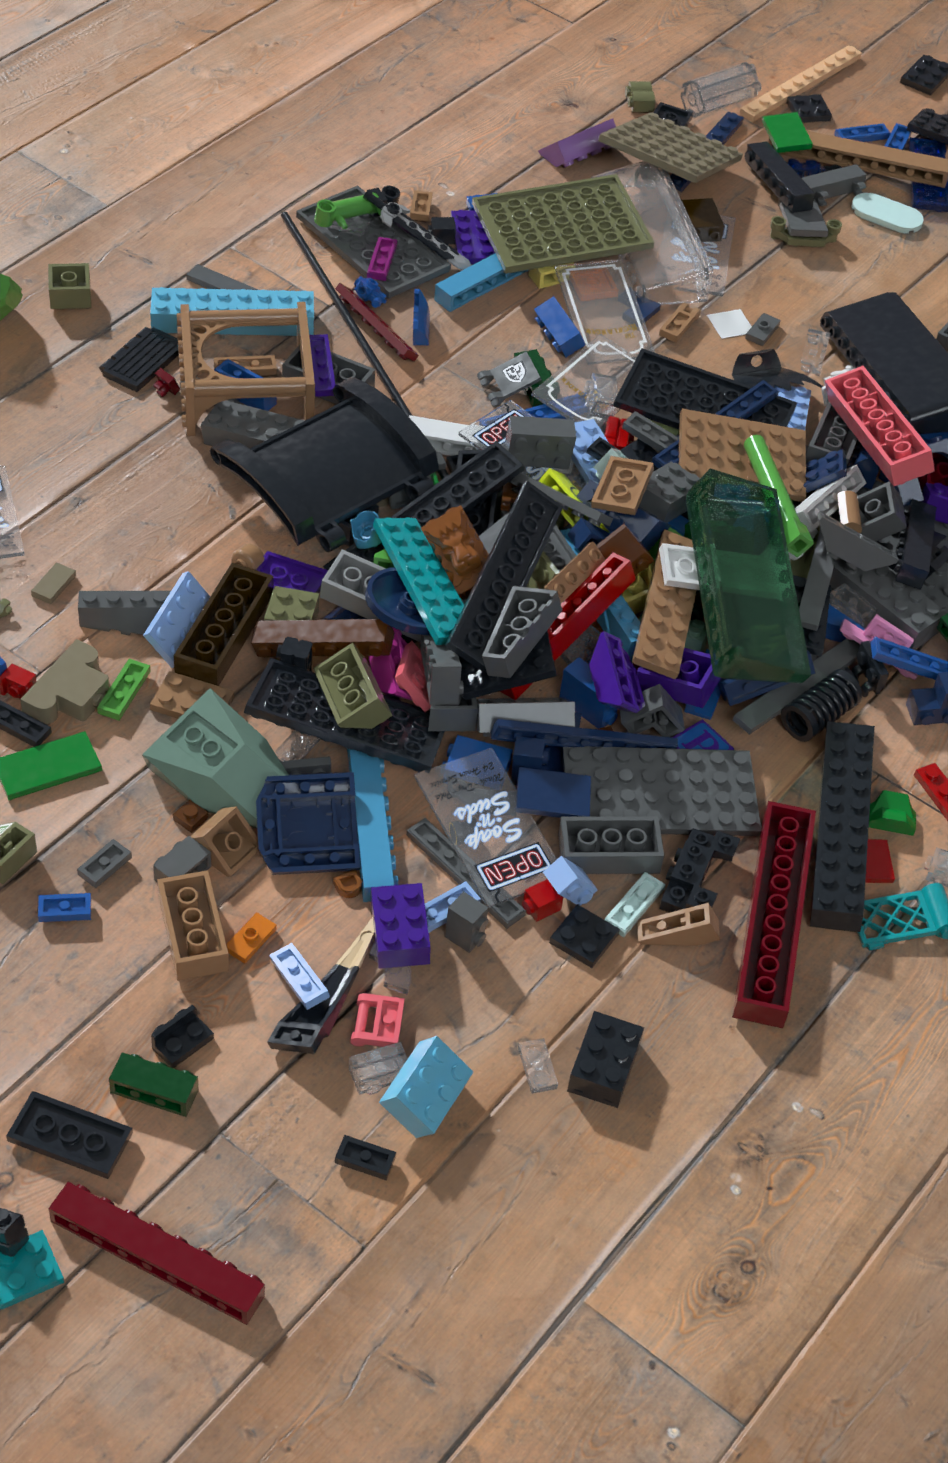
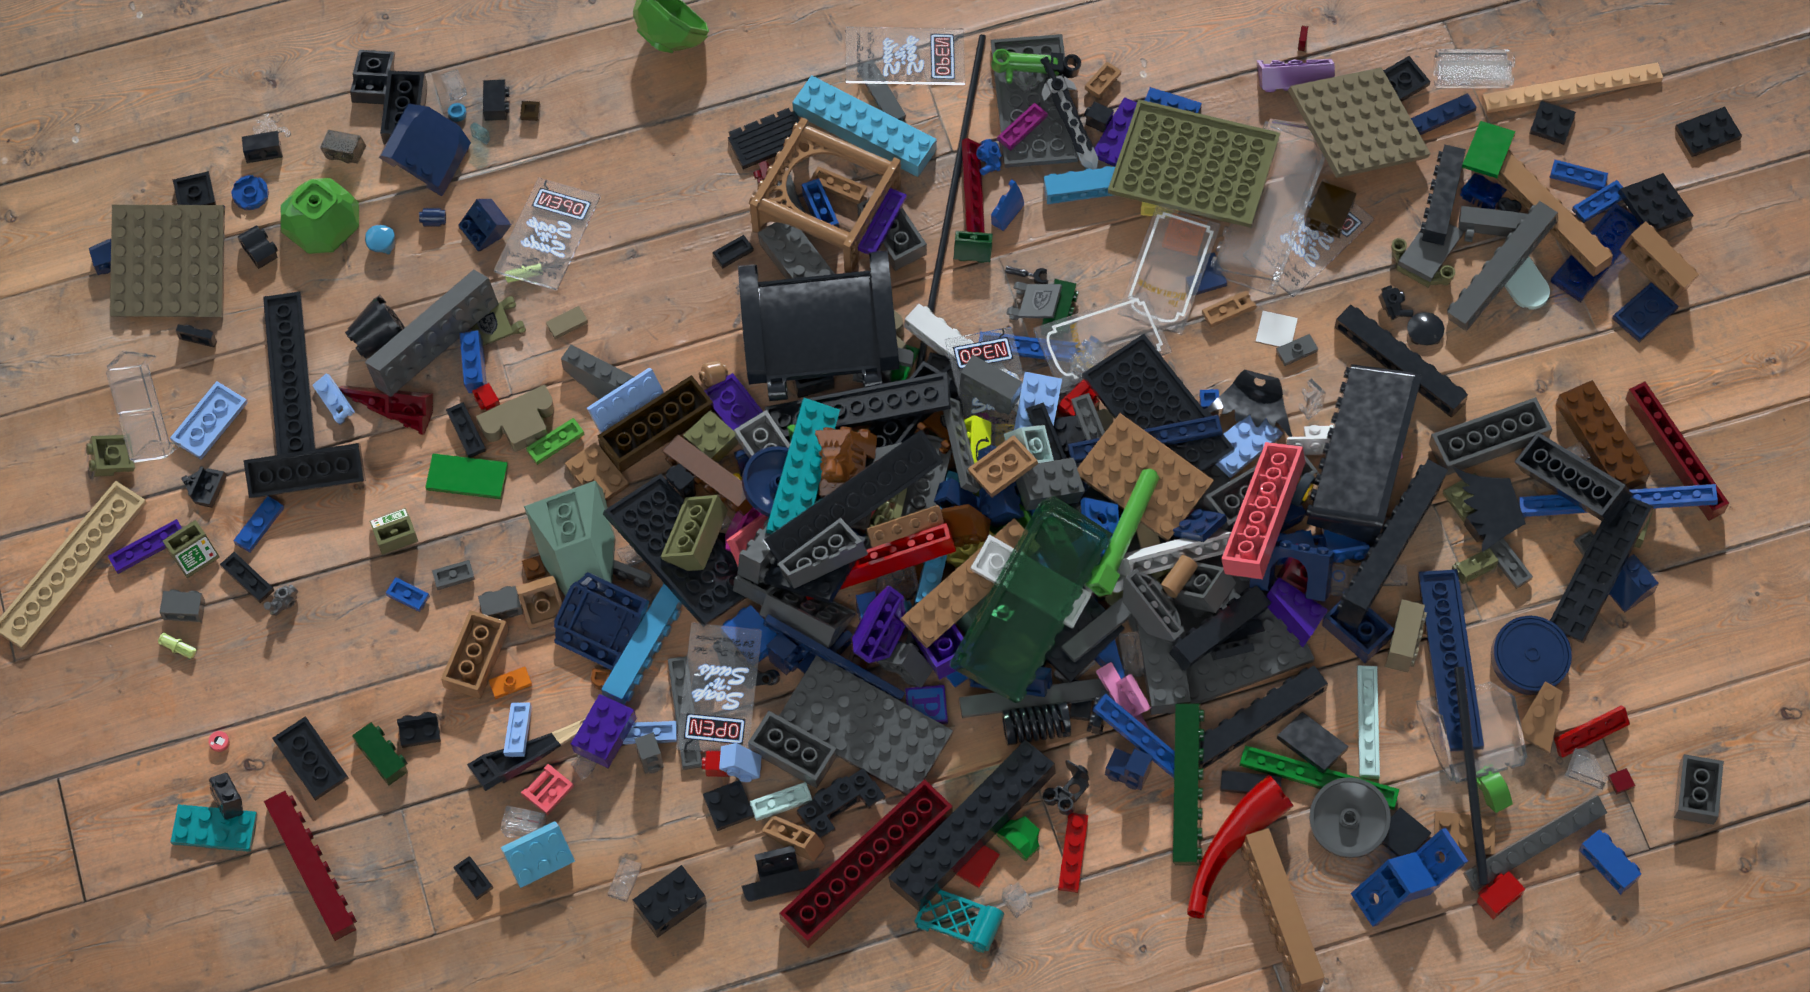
camera: 40 degrees right, 15 degrees up
(69, 286) = (753, 40): olive brick -> none
(181, 458) = (732, 251): none -> black tile
(224, 251) = (905, 55): none -> clear piece
(363, 530) = (807, 390): dark azure hair -> none
(416, 360) = (972, 246): none -> dark green brick
(477, 367) = (1024, 273): none -> black piece
(552, 793) = (777, 689): dark blue tile -> none
(559, 327) = (1117, 267): blue brick -> none
(564, 120) = (1302, 39): none -> dark red tile
(640, 96) = (1398, 39): olive brick -> none
(694, 973) = (778, 875): none -> black plate
(807, 263) = (1391, 302): none -> black piece
(829, 296) = (1396, 356): none -> black brick
(850, 274) = (1425, 329): none -> black dish
(874, 202) = (1502, 266): none -> dark grey brick
(899, 733) = (1062, 795): none -> black piece

